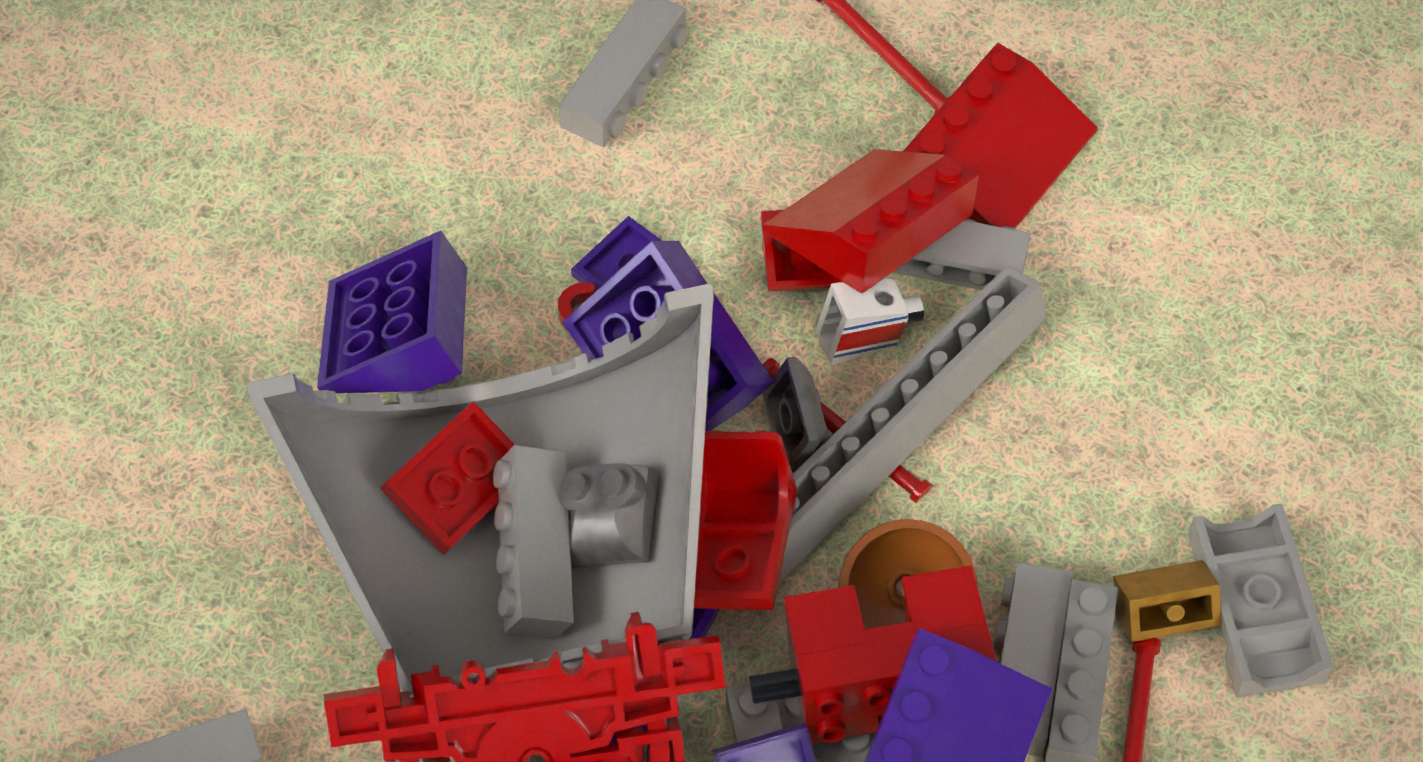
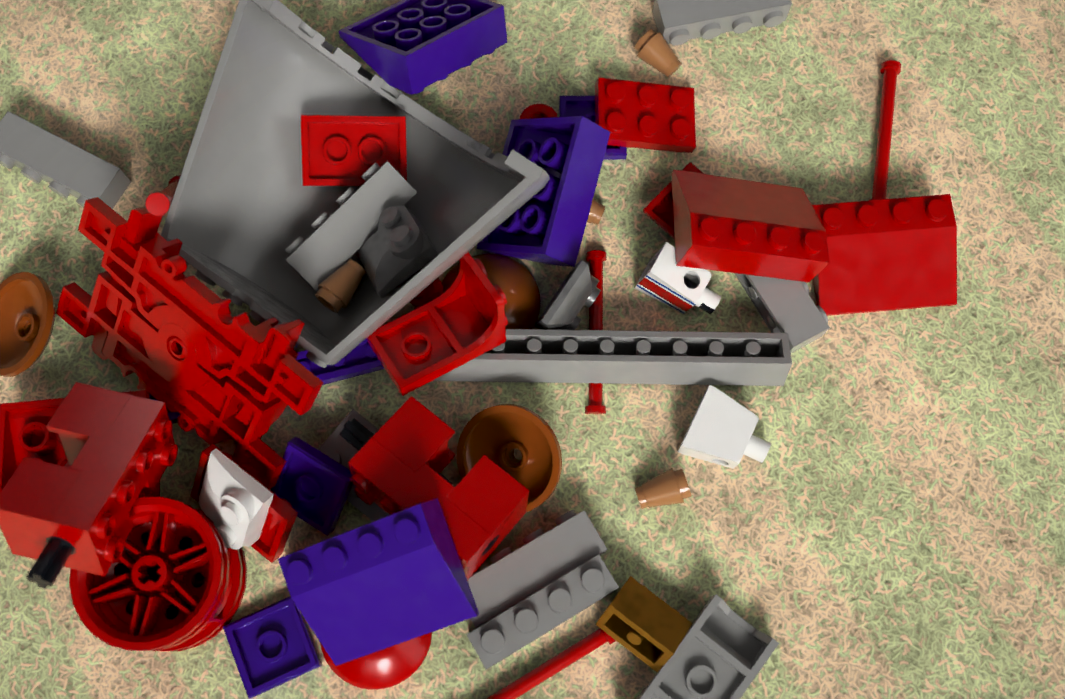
camera: 50 degrees right, 15 degrees up
(395, 638) = (159, 202): none -> red bar
(592, 597) = (340, 286): none -> medium nougat cone
(612, 154) = (657, 53): none -> medium nougat cone
(669, 206) = (646, 115): none -> red plate
(1043, 399) = (723, 432): none -> white torso
(1055, 489) = (664, 489): none -> medium nougat cone

